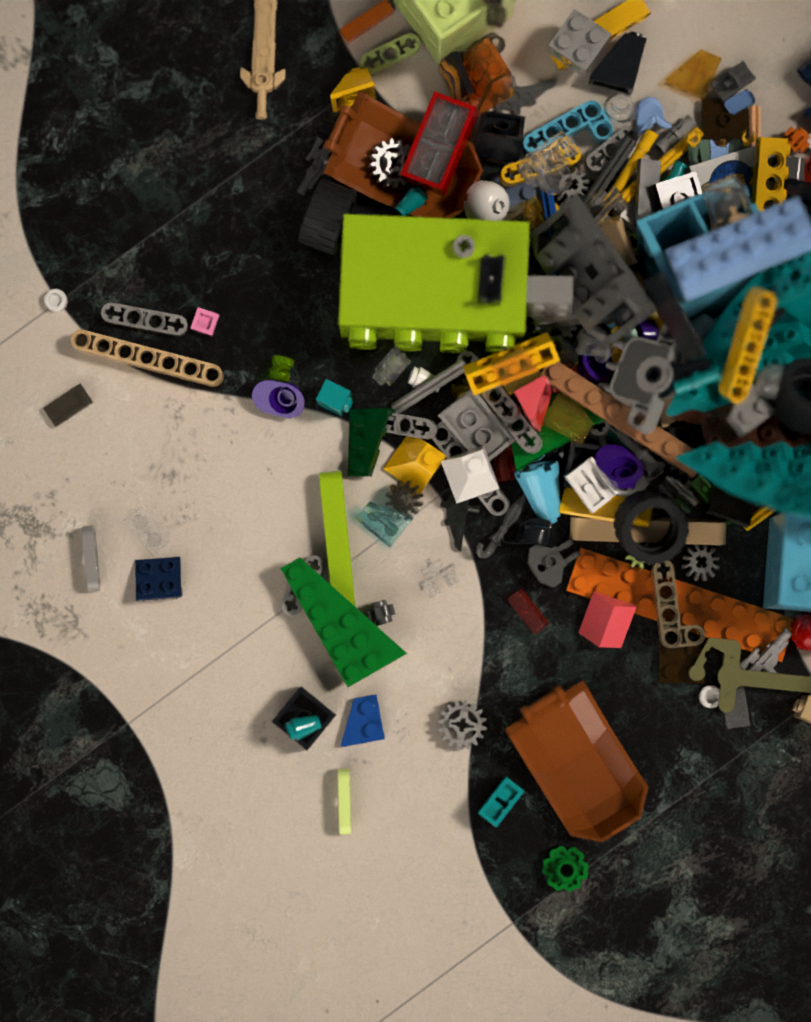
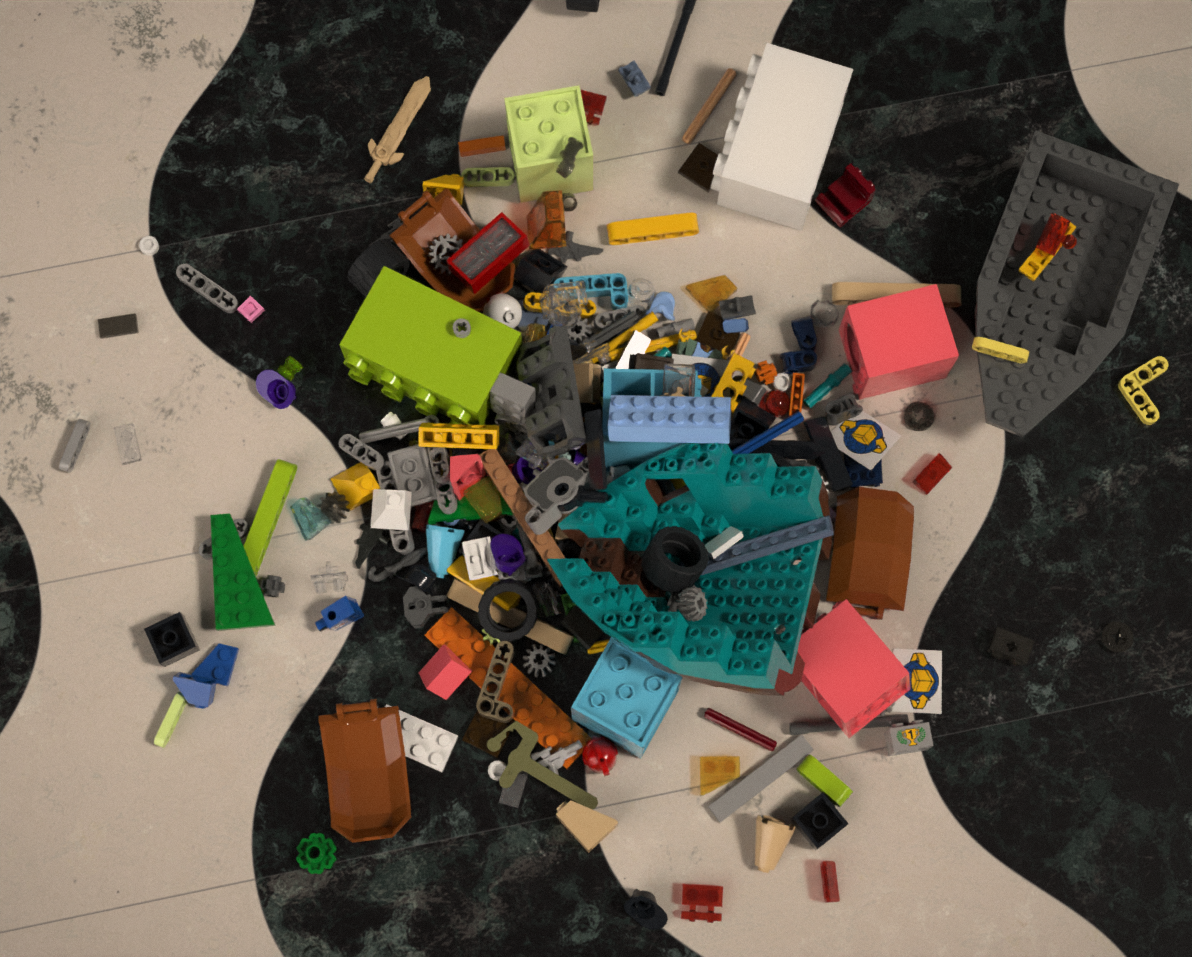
camera: 25 degrees right, 10 degrees down
(138, 351) = (189, 309): tan beam -> none
(158, 578) = (117, 484): dark blue hinge -> none
(301, 727) = (164, 642): teal cone -> none
(334, 398) = (317, 406): teal brick -> none
(355, 757) = (196, 689): none -> blue slope
(365, 436) = (328, 445): dark green wing -> none
(391, 367) = (372, 404): clear hips -> none
(411, 201) = (448, 286): teal cone -> none
(456, 77) = (526, 211): slope -> none
(461, 734) = (287, 708): light grey gear -> none
(473, 604) = (345, 610): none -> blue torso
(491, 279) = (470, 361): black hinge -> none
(500, 801) = (291, 775): teal brick -> none
(516, 370) = (458, 439): clear yellow piece -> none
(528, 611) = (387, 638): clear red slope -> none
(579, 42) = (630, 226): light grey brick -> none
(620, 65) = (657, 258): black slope -> none
(621, 700) = (426, 742): none -> white plate
(698, 380) = (591, 506): teal pin -> none
(746, 333) = (640, 504): yellow beam -> none
(750, 412) = (622, 548): light grey wing -> none
(768, 380) = (646, 531): clear hair -> none

